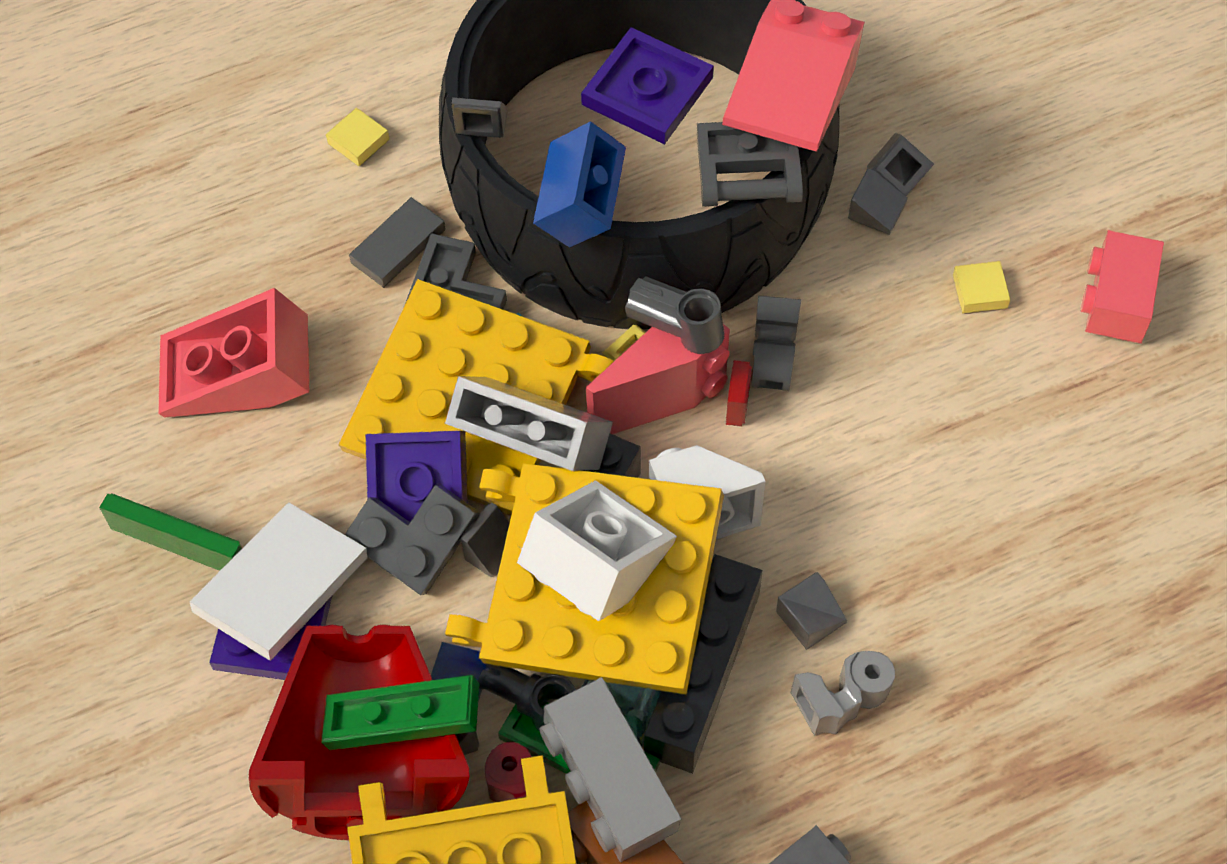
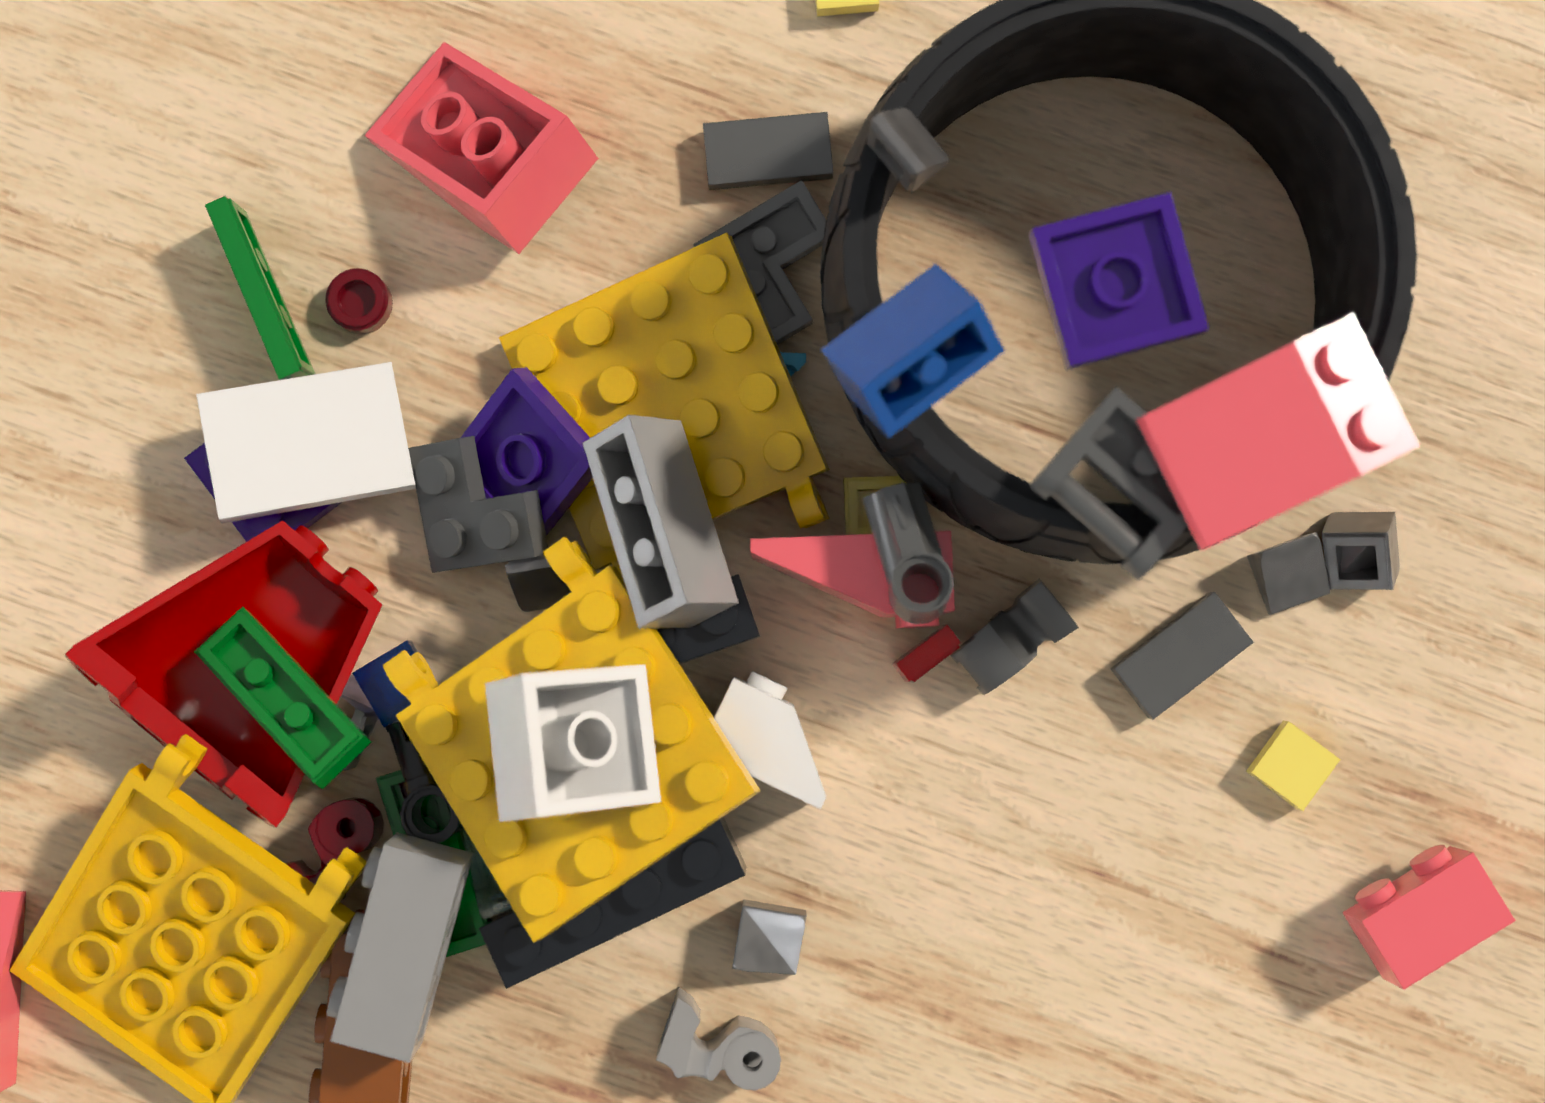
camera: 45 degrees right, 25 degrees up
(236, 498) = (359, 301): none -> dark red tile
(868, 287) = (1182, 655): none -> dark grey tile

